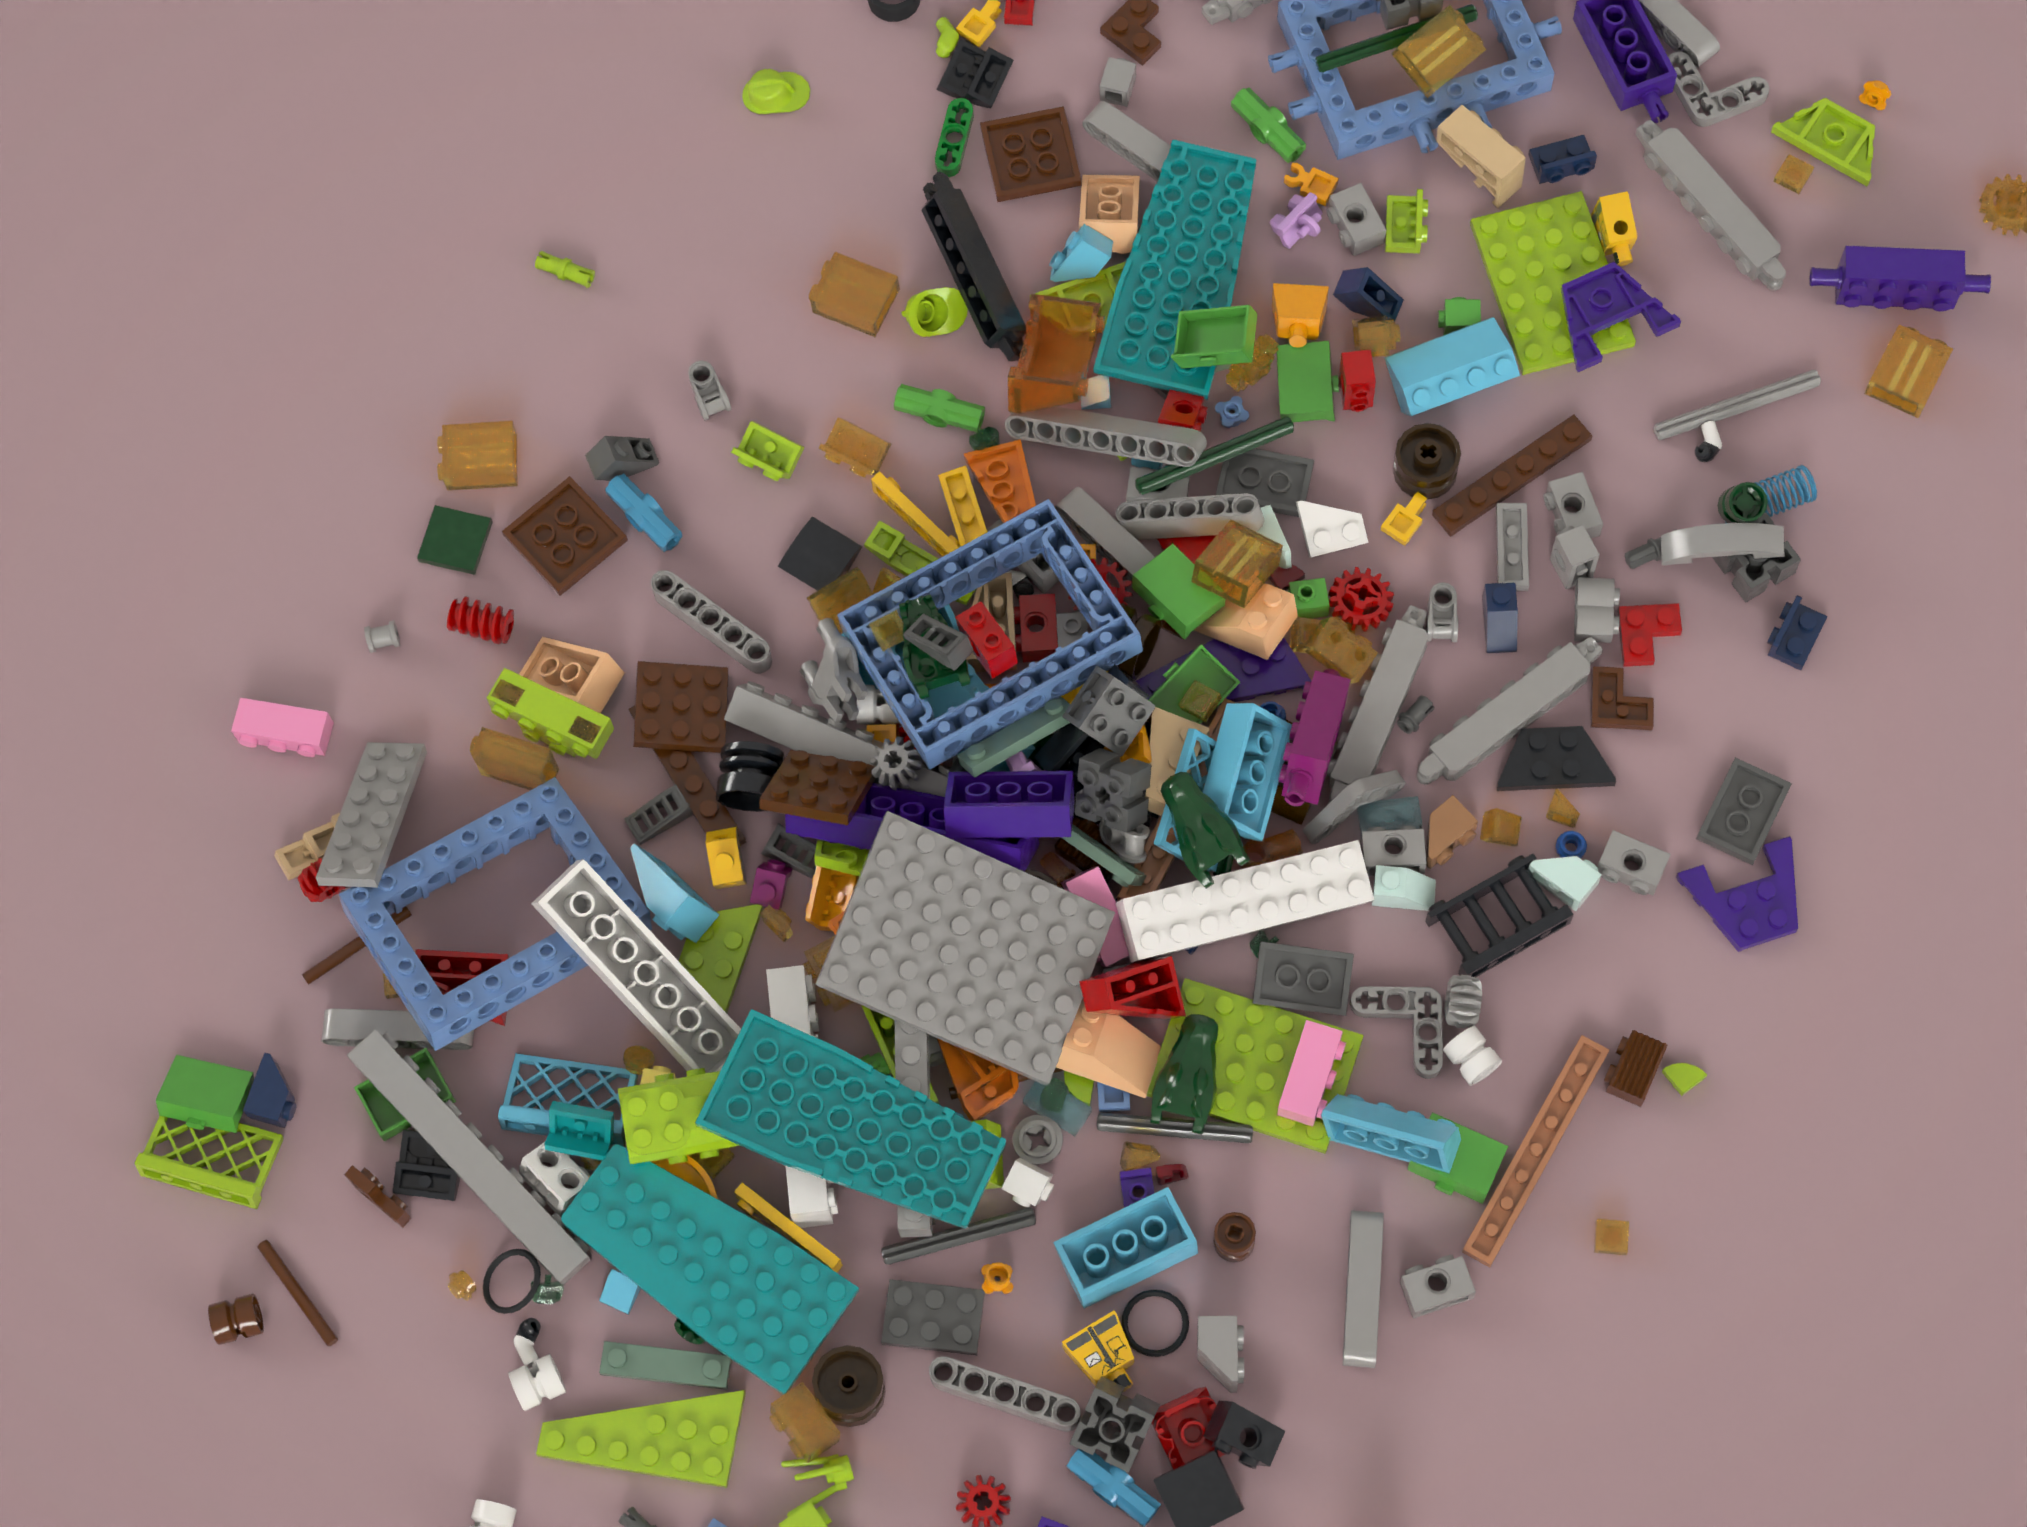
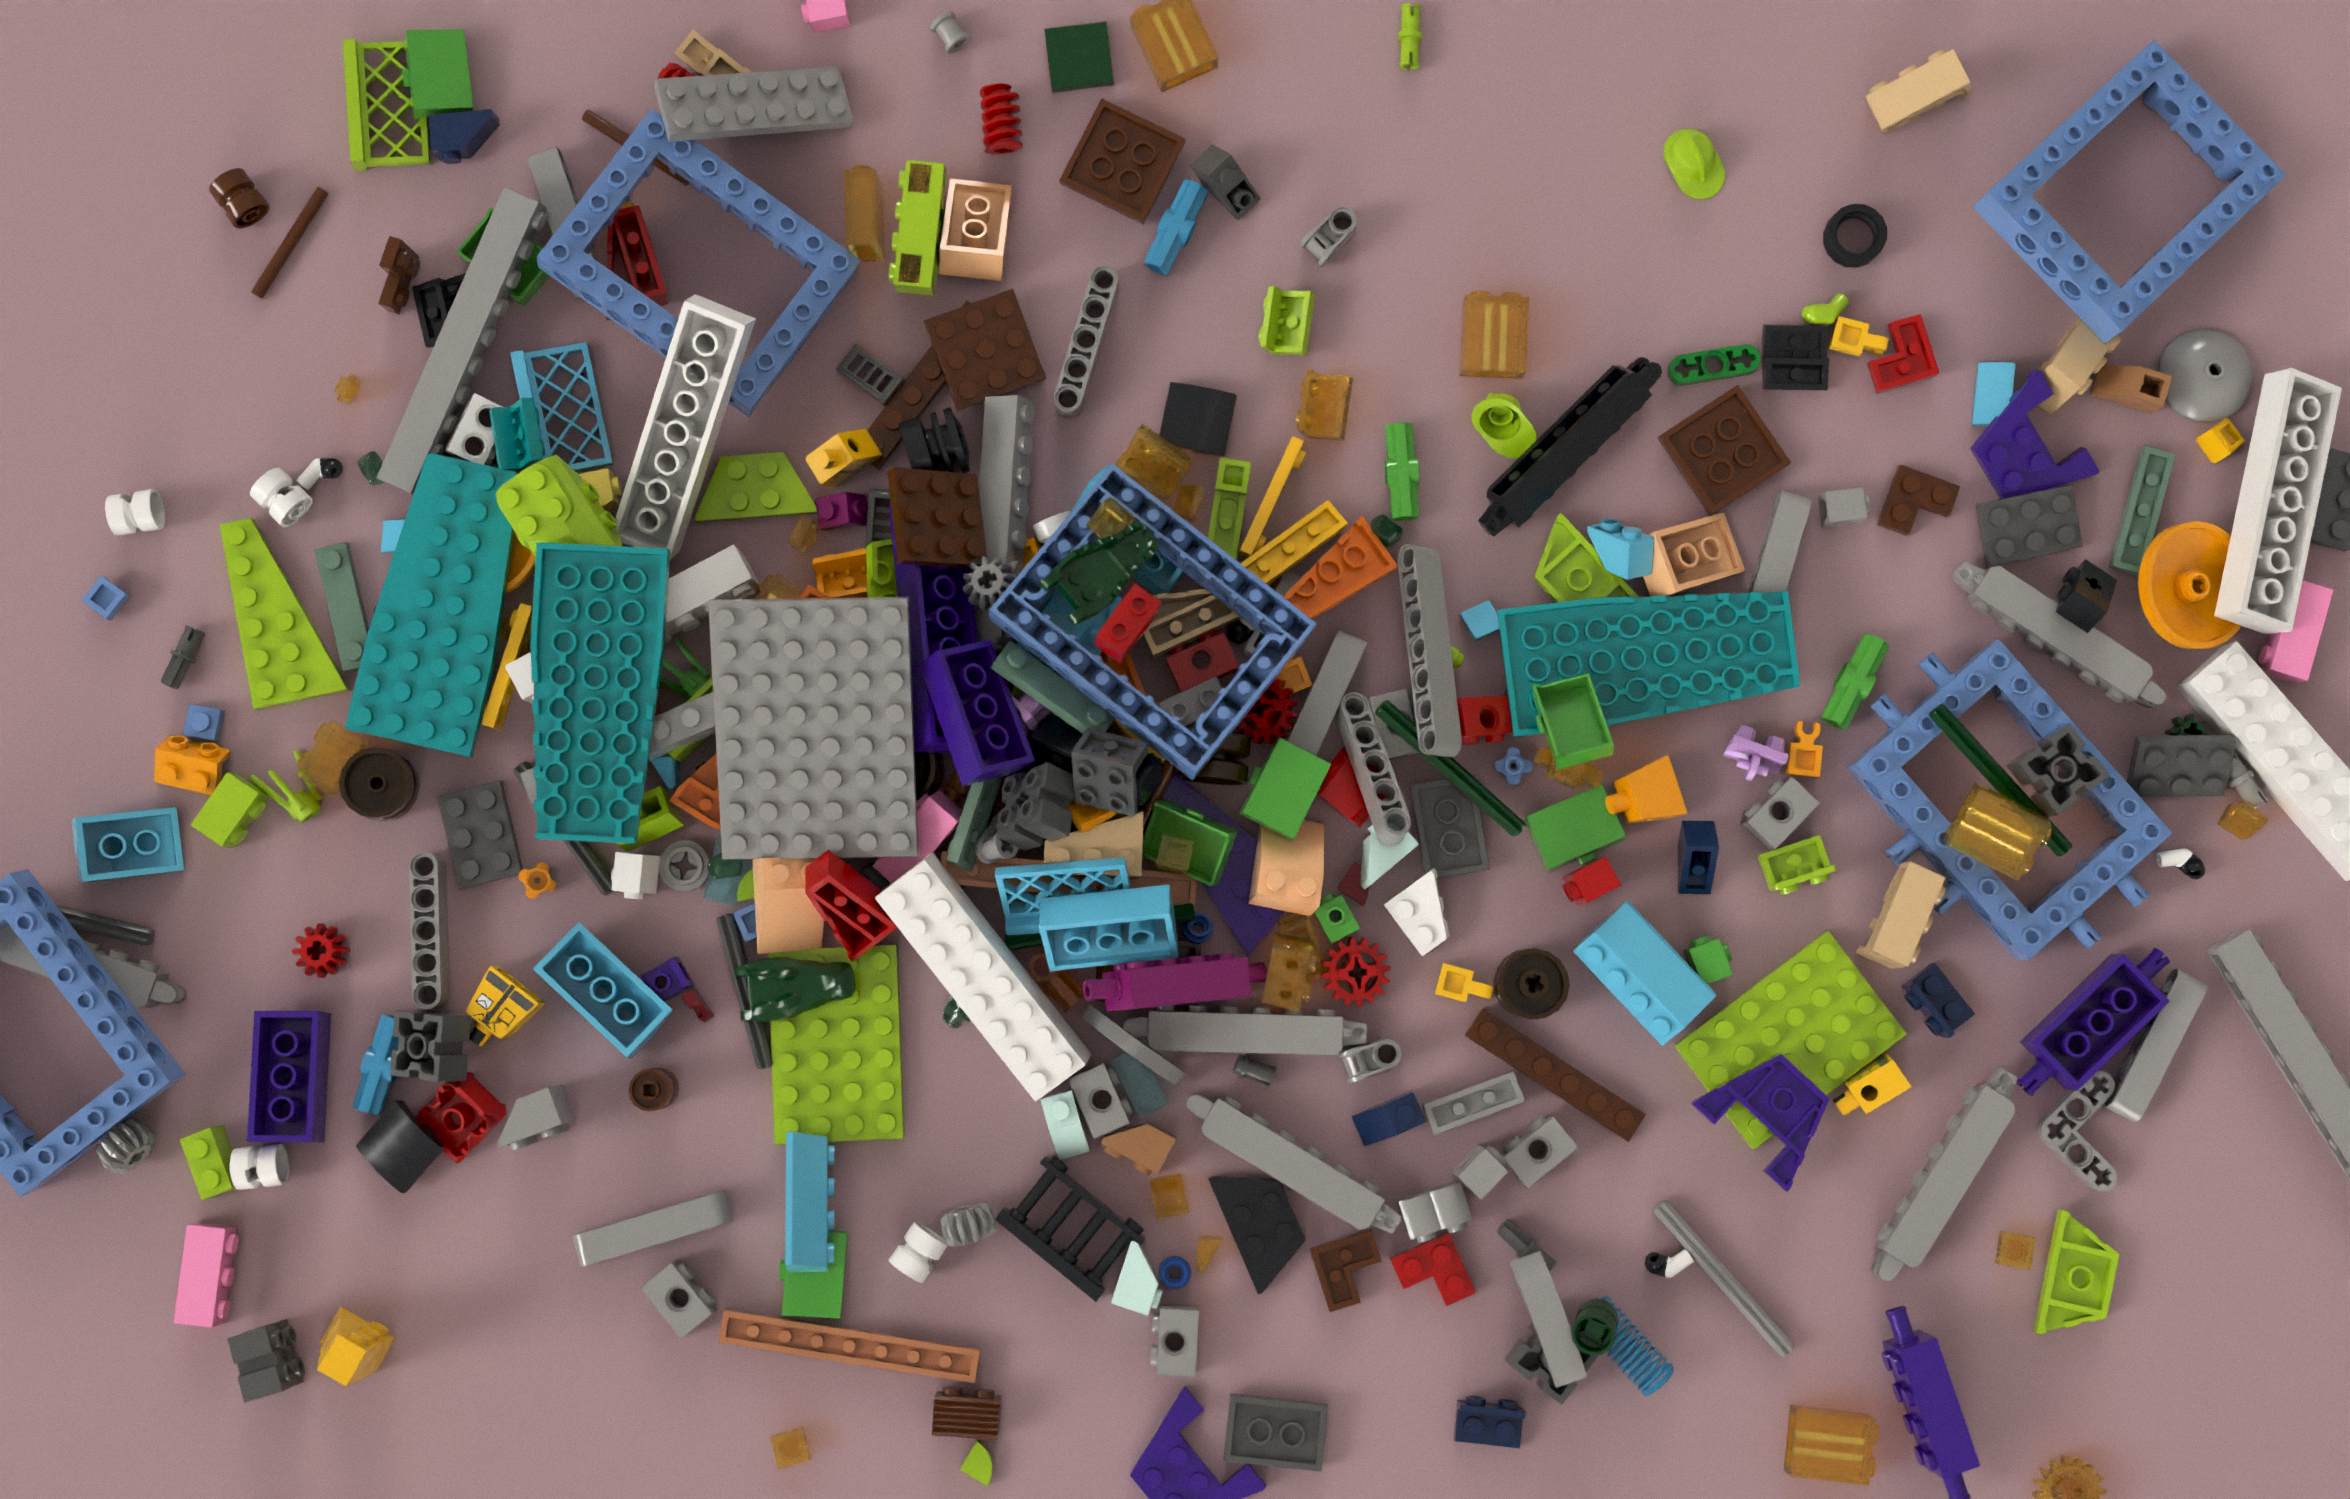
camera: 65 degrees right, 15 degrees up
(513, 1252) = (337, 433): black tyre -> none
(638, 1058) = (620, 458): clear yellow plate -> none
(671, 898) = (782, 421): medium azure slope -> none
(836, 676) = (1063, 485): light grey connector -> none
(952, 654) = (1097, 597): dark grey slope -> none
(1054, 354) = (1493, 565): clear orange windscreen -> none
(1137, 1155) = (701, 968): clear yellow slope -> none
(1185, 1325) = (582, 1044): black tyre -> none
(1201, 827) = (1020, 913): dark green animal -> none
(1237, 563) = (1330, 837): clear yellow brick -> none
(1261, 1435) = (471, 1152): black brick -> none
(1303, 978) = (934, 1060): dark grey plate -> none
(1311, 1073) = (836, 1104): bright pink brick -> none
(1375, 334) = (1649, 882): clear yellow brick -> none
(1411, 1009) = (947, 1174): light grey beam -> none
(1875, 94) = (2145, 1306): light orange plate -> none

